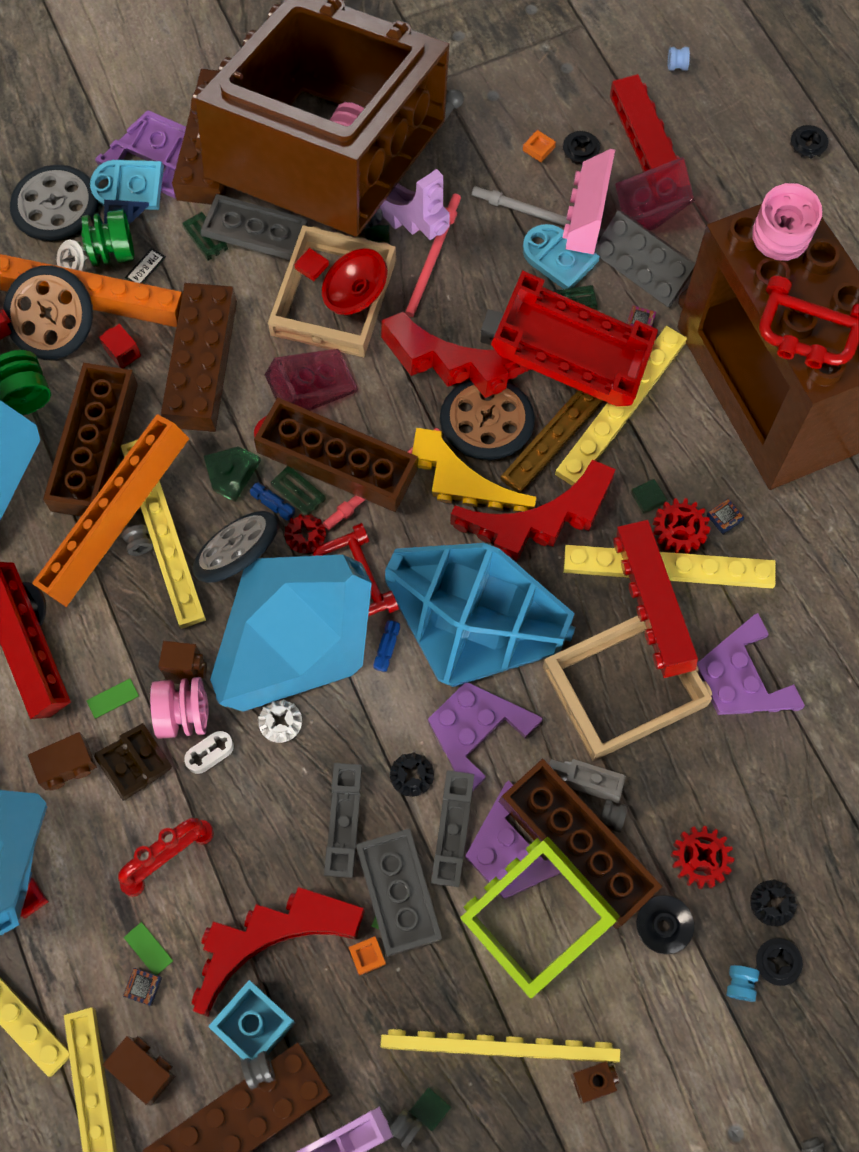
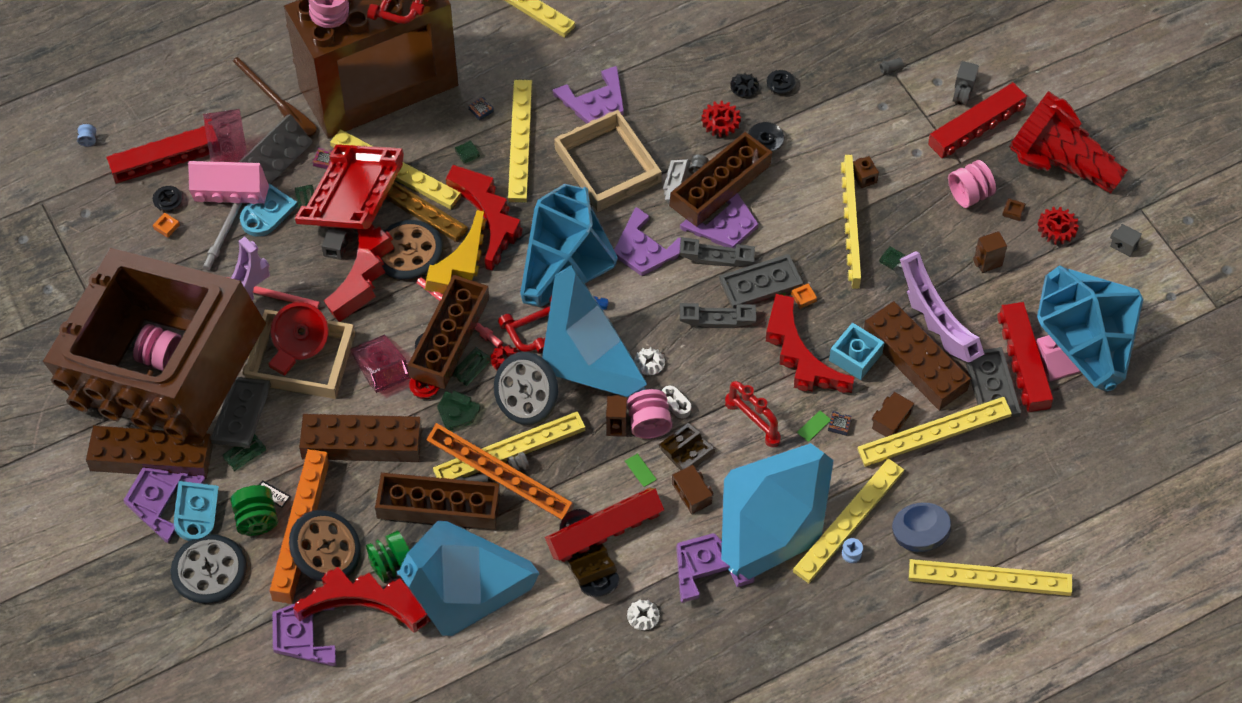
camera: 95 degrees left, 10 degrees down
(69, 250) = (275, 547): white gear -> none
(120, 346) = (351, 496): red brick -> none
(132, 208) = (222, 510): dark blue slope -> none
(257, 1070) = (886, 332): dark grey wheel -> none
(272, 501) = (481, 381): blue axle -> none
(415, 786) = (684, 286): black gear -> none
(607, 914) = (789, 177): lime window -> none
(656, 599) = (551, 136): red brick -> none
(681, 515) = (491, 131): red gear -> none
(742, 983) = (796, 98): dark azure wheel -> none
(803, 134) = (166, 50): black gear -> none

